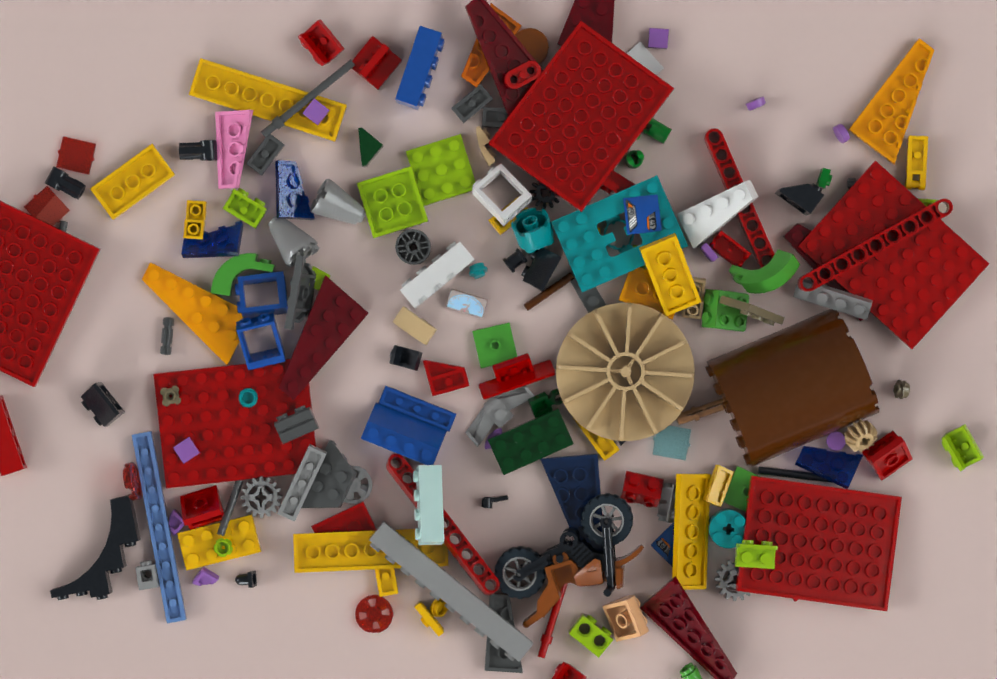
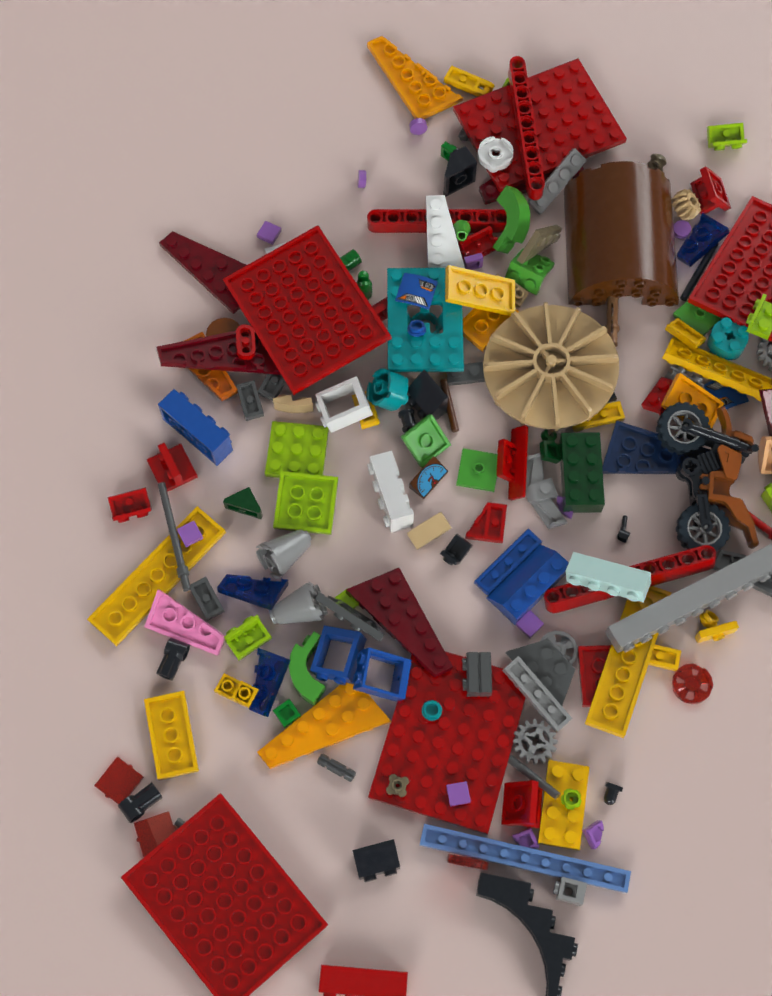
camera: 70 degrees left, 20 degrees down
(194, 272) = (287, 713): none -> green plate
(366, 451) = (529, 624): none -> medium lavender tile
(413, 237) = (355, 501): dark grey wheel -> none
(477, 270) = (403, 455): teal plate -> none
(499, 286) = (425, 440): none -> bright green plate
(540, 199) = (362, 365): black gear -> none
(600, 232) = (416, 328): none -> blue plate
(647, 518) = (686, 390): none -> light orange plate
(672, 442) = (631, 358): clear light blue piece -> none
(733, 228) = (462, 229): none -> bright green cone
(820, 228) = (491, 162): none -> white plate

